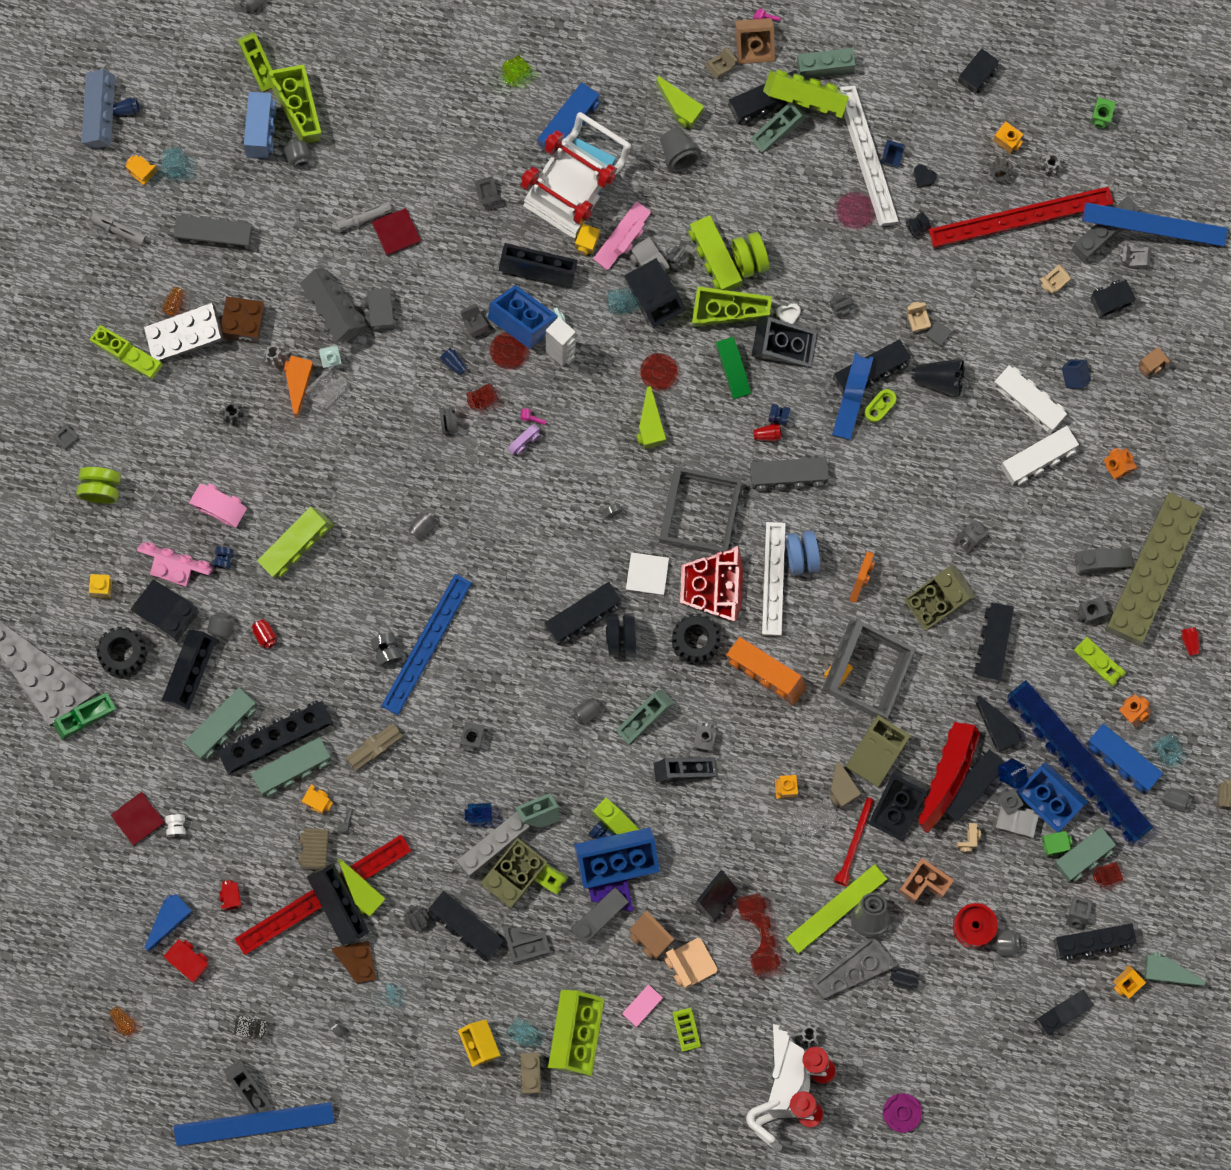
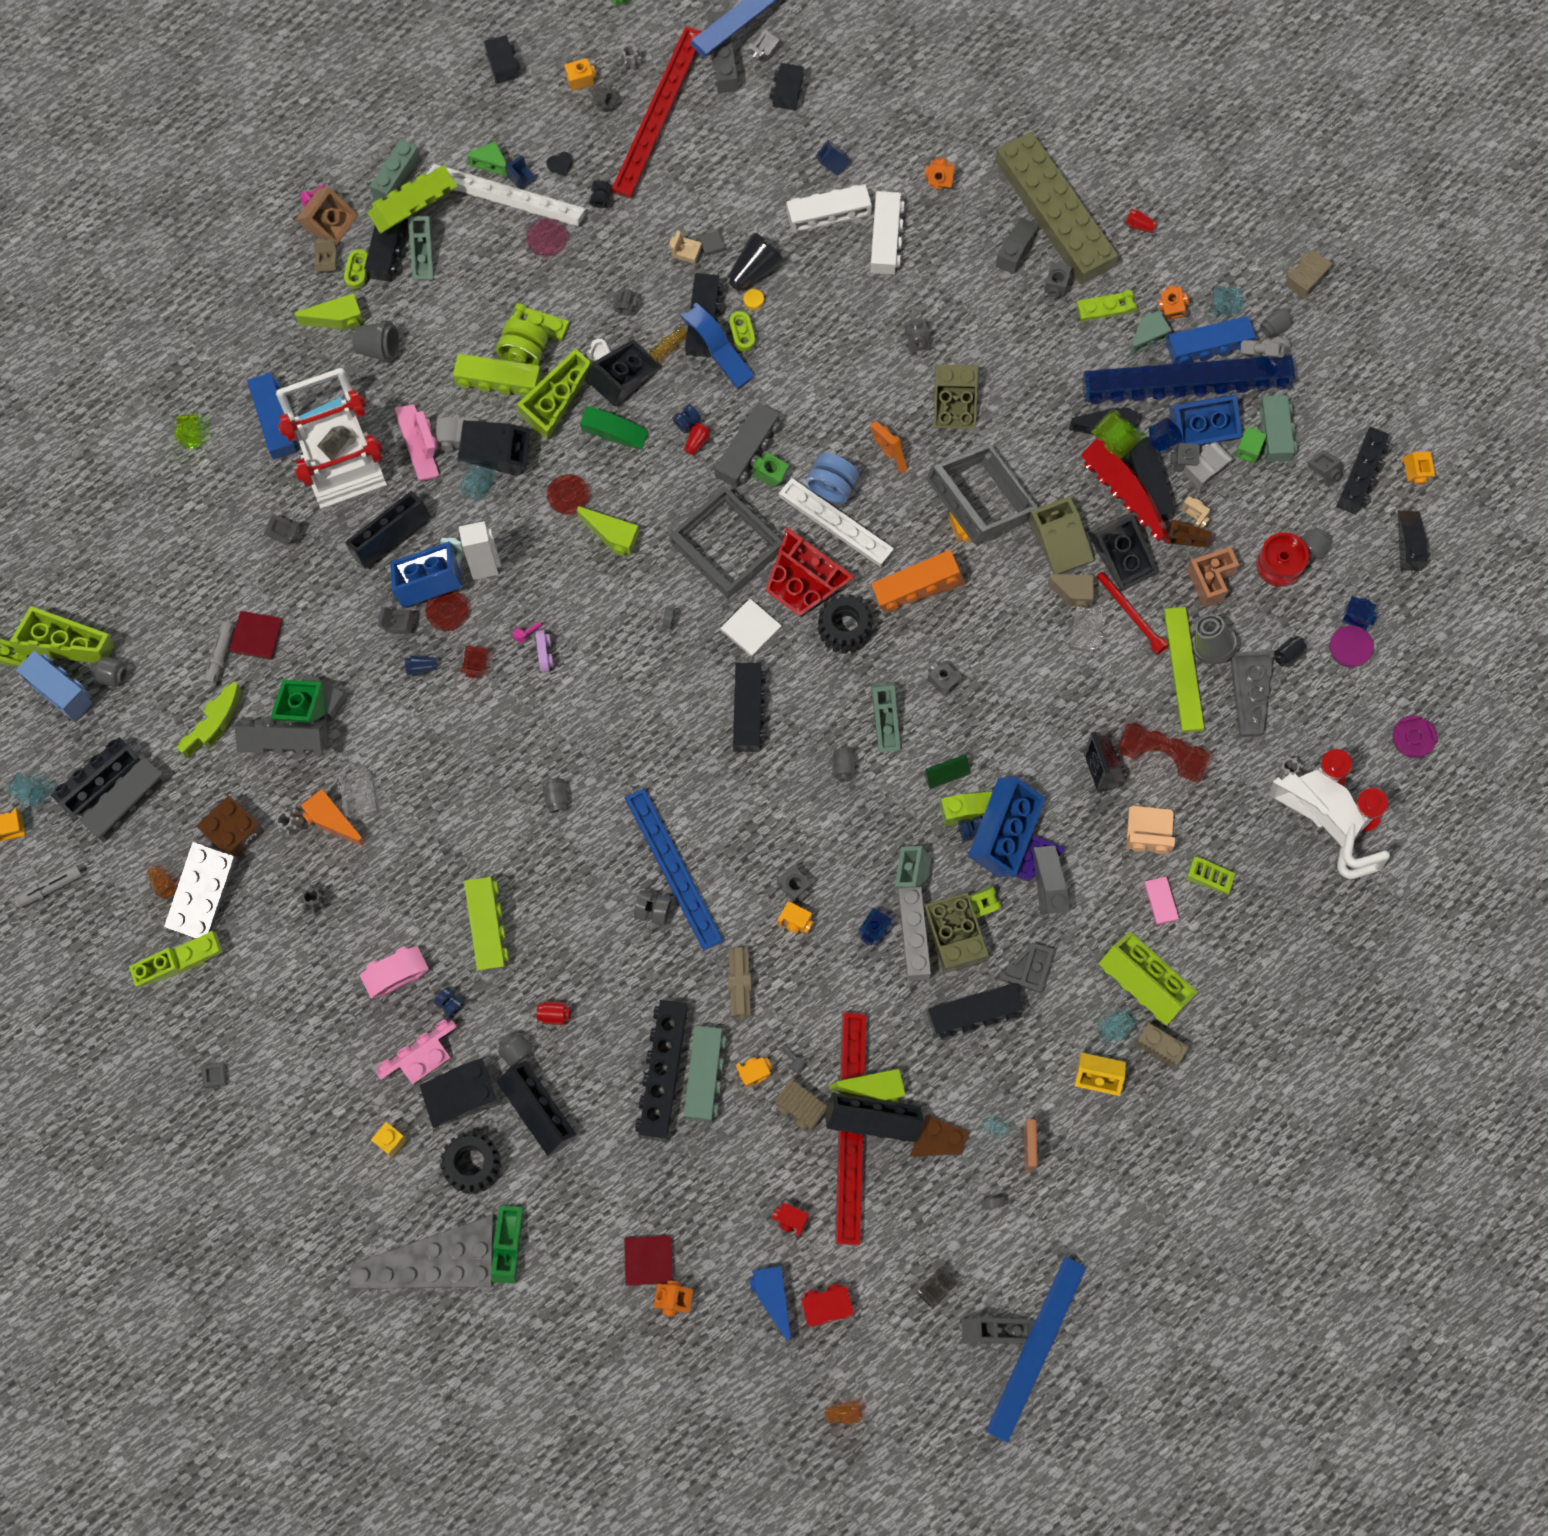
camera: 50 degrees left, 5 degrees down
(98, 485) = (287, 1072): lime wheel -> none
(121, 852) = (673, 1298): none -> orange brick
(175, 825) = (677, 1224): white wheel -> none
(215, 201) = (95, 777): none -> black brick
(220, 725) = (612, 1115): sand green brick -> none
(319, 250) = (218, 714): none -> lime slope
(330, 356) = (329, 770): light aqua bracket -> none
(362, 300) = (299, 701): none -> green slope
(391, 1026) = (1030, 1145): none -> nougat tile
(416, 918) = (936, 1053): dark grey gear -> none
(447, 754) = (795, 919): none -> light orange brick
(450, 419) = (473, 705): dark grey wheel -> none
(569, 183) = (336, 441): none -> clear smoke bracket
(587, 239) = (397, 473): yellow brick -> none
(621, 634) = (794, 683): black wheel -> none
(633, 788) = (947, 771): none -> dark green slope
(650, 936) = (1102, 845): medium nougat slope -> none
(677, 257) = (474, 407): dark grey gear -> none
(684, 769) = (960, 715): black slope -> none
(727, 92) = (355, 270): none -> lime plate
(781, 254) = (553, 326): none -> lime plate
(784, 509) = (777, 467): none -> bright green brick
(786, 787) = (1040, 636): light orange window -> none
(830, 359) = (668, 343): none -> clear yellow pin
(888, 122) = (488, 159): none -> bright green slope
(913, 396) = (753, 299): none -> yellow tile
(943, 839) = (1188, 535): none -> reddish brown wing
(943, 1021) = (1351, 646): none -> magenta tile
(973, 1011) = (1360, 613): none -> clear blue brick
(985, 737) = (1117, 434): none -> clear neon green brick
(995, 642) = (1030, 377): black brick -> none
(1055, 279) = (736, 119): tan bracket -> none
(1097, 707) = (1150, 332): none -> sand green slope
(1107, 875) = (1307, 422): clear red bracket -> none
(1143, 805) = (1267, 348): none -> light grey bar
(1153, 362) = (869, 91): medium nougat brick -> none
(1165, 970) = (1430, 428): sand green slope -> none

